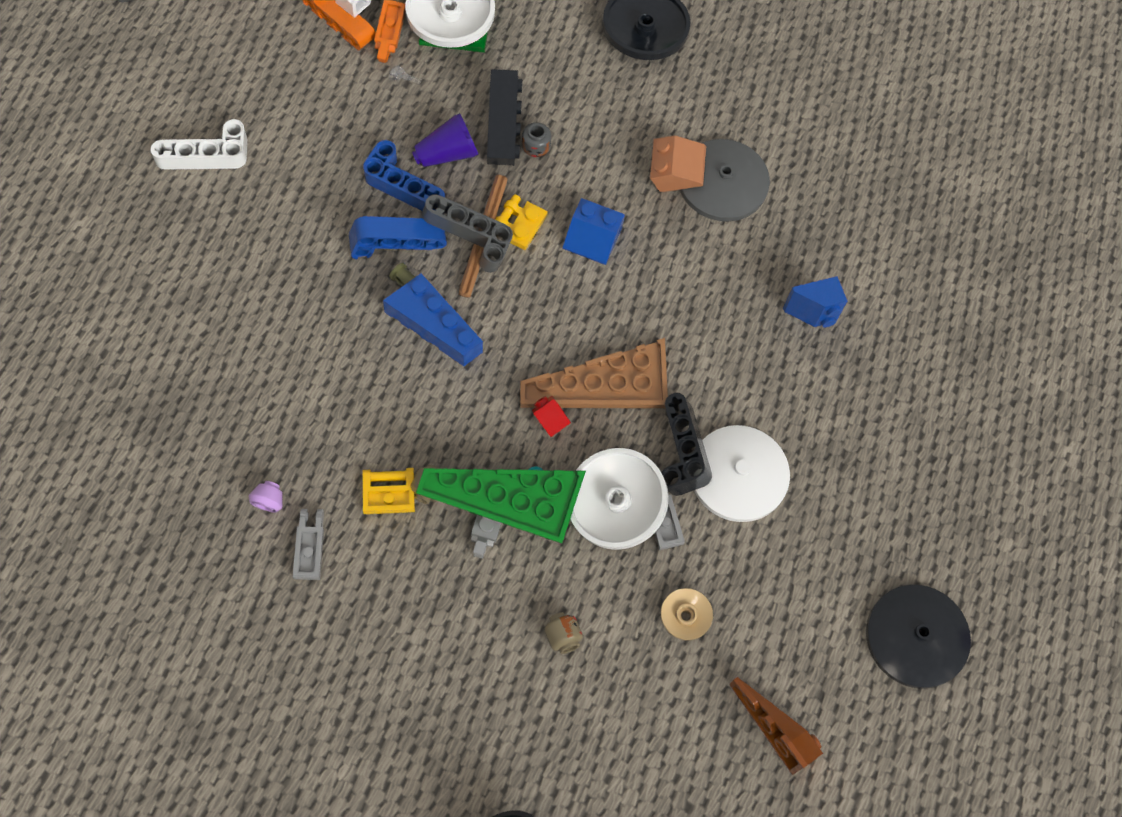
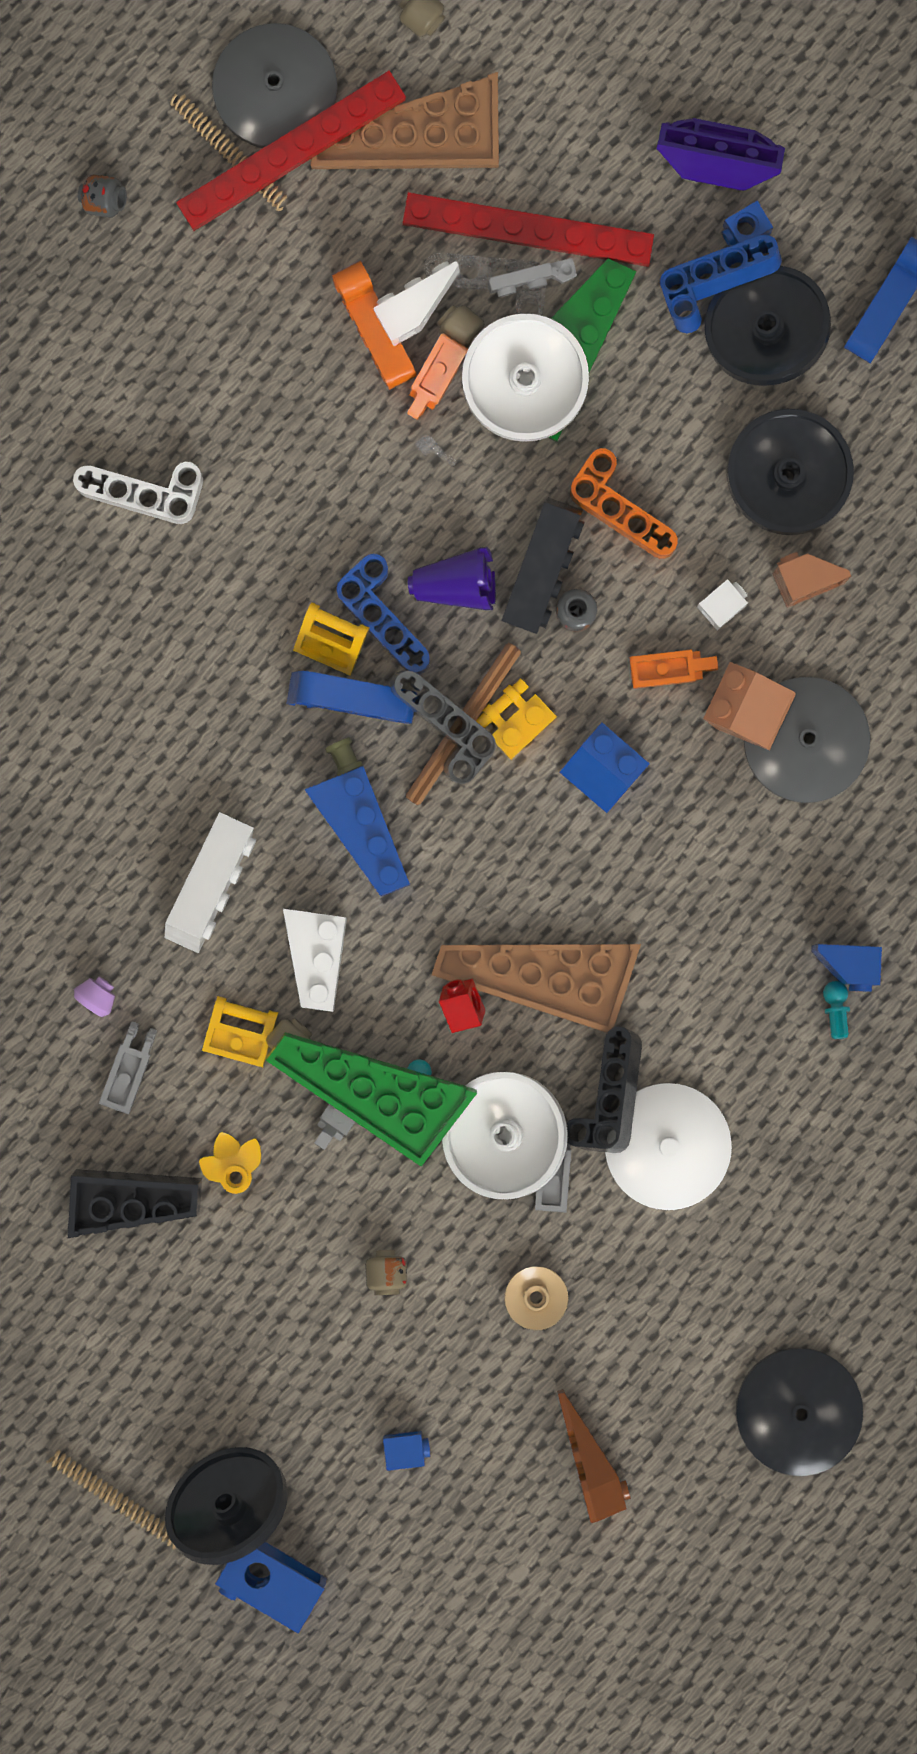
camera: 30 degrees right, 20 degrees up
(330, 390) = (208, 883): none -> white wedge
(334, 643) = (128, 1200): none -> black wedge
(365, 207) = (327, 646): none -> yellow plate
(410, 588) = (229, 1158): none -> yellow plate
(429, 415) = (316, 956): none -> white wedge
(548, 78) = (627, 510): none -> orange beam
(614, 160) = (670, 668): none -> orange hinge
(629, 770) = (405, 1450): none -> blue brick
(633, 112) = (723, 604): none -> white brick
(684, 76) = (807, 577): none -> nougat slope
(814, 333) = (836, 994): none -> teal axle

